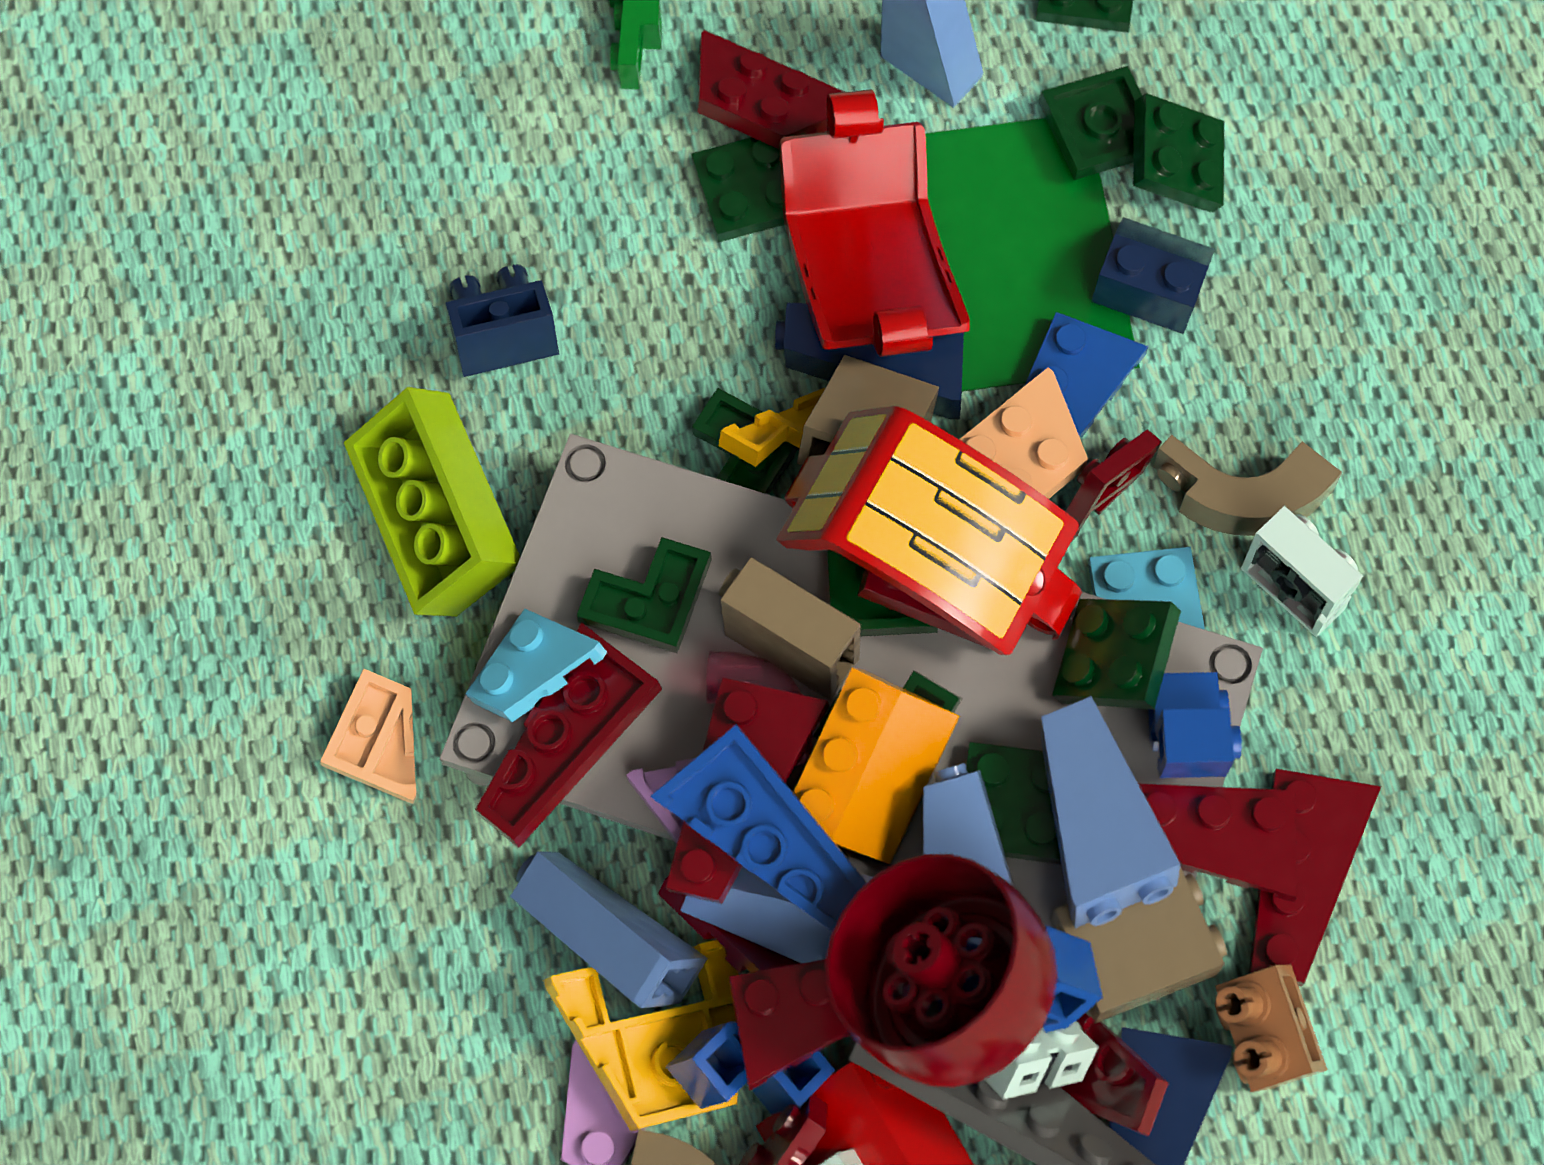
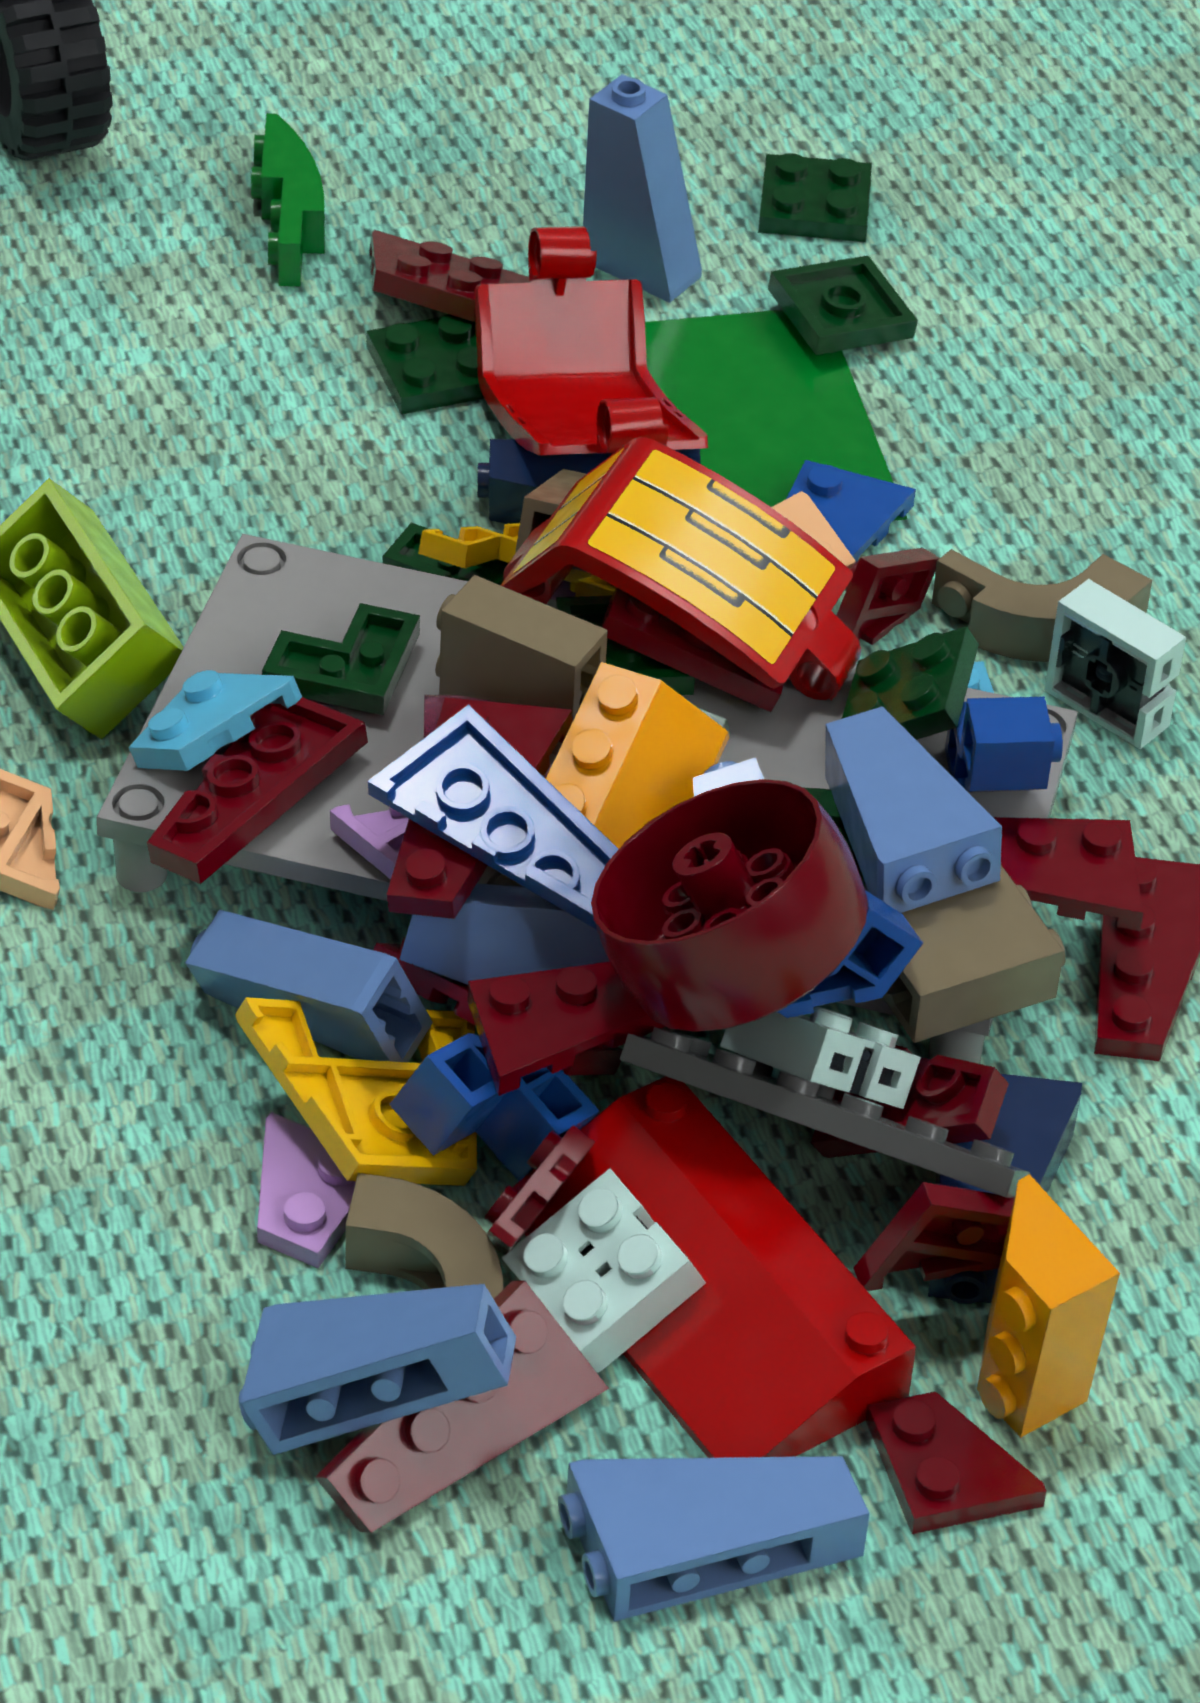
camera: 10 degrees left, 25 degrees down
(501, 325) = (151, 467): dark blue brick -> none
(1152, 275) = (912, 432): dark blue slope -> none
(1178, 153) = (934, 324): dark green plate -> none
(1269, 1028) = (1123, 1070): medium nougat brick -> none

